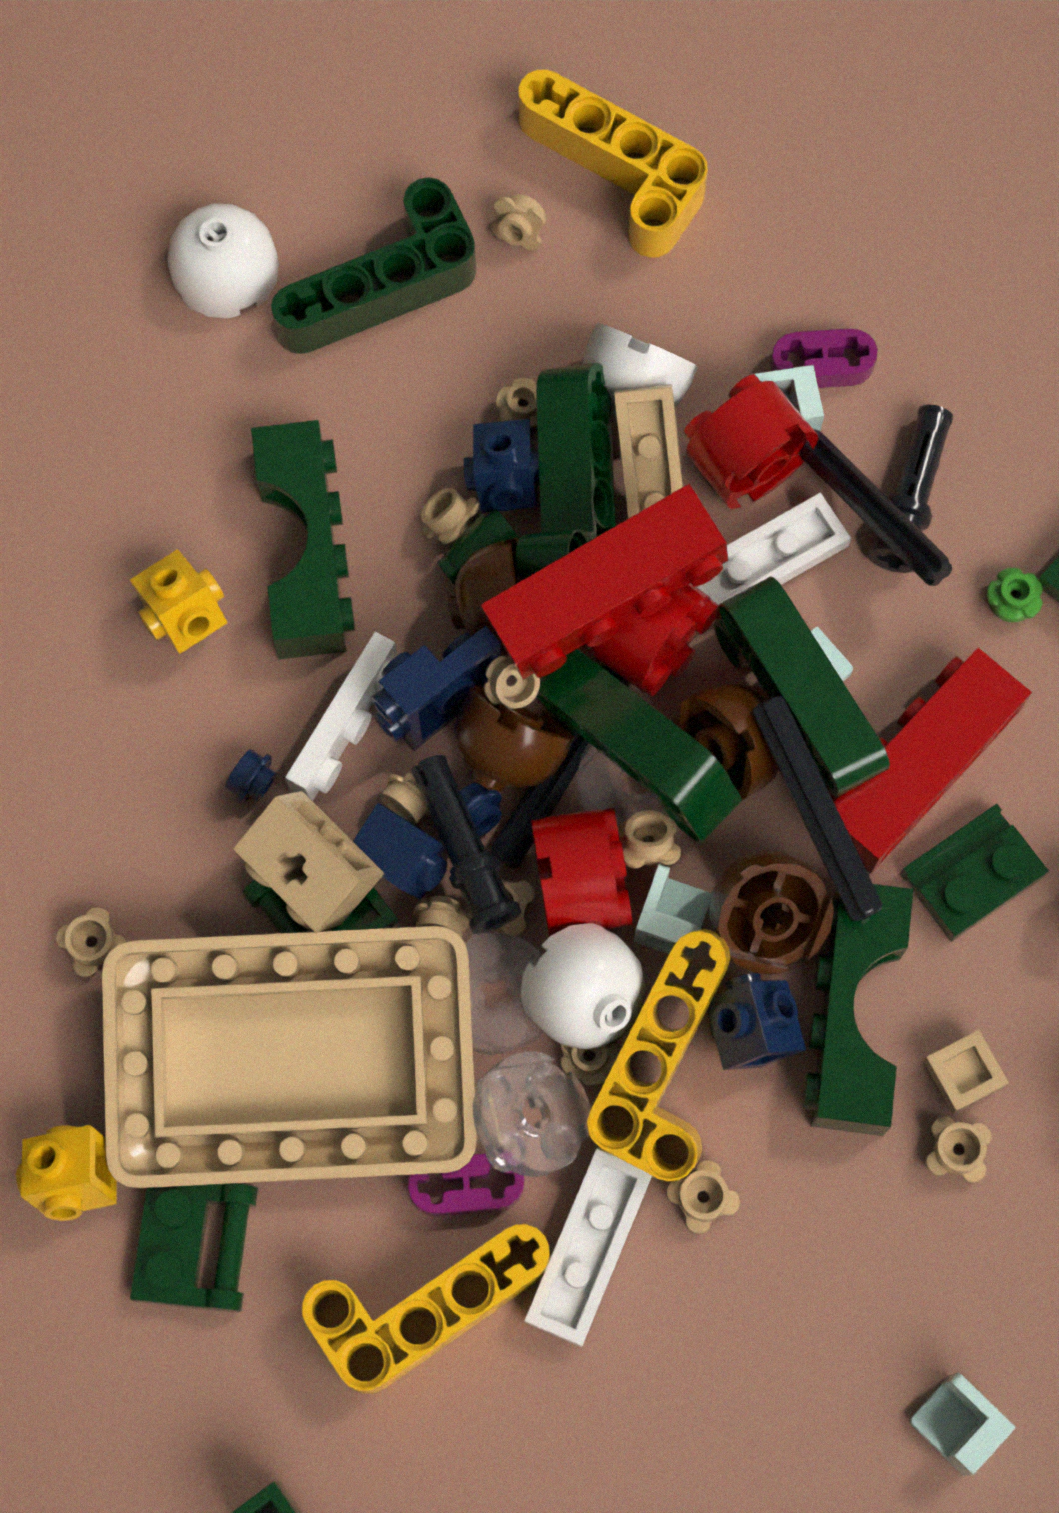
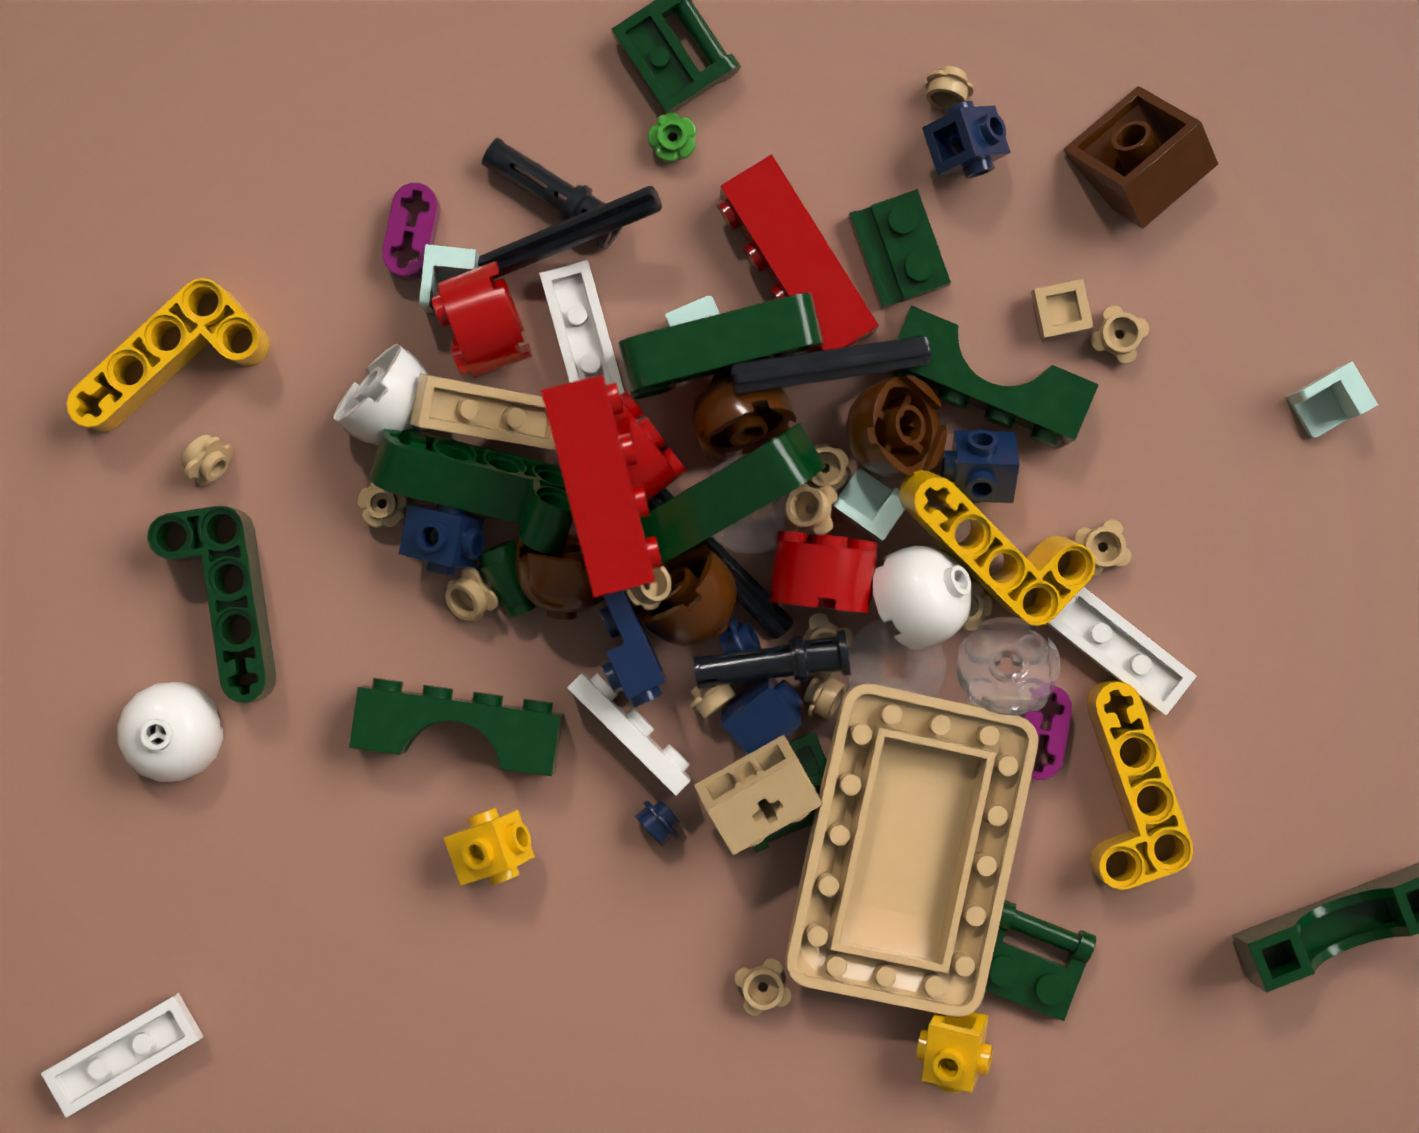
camera: 80 degrees left, 15 degrees up
(710, 867) = (837, 462): none -> tan plate

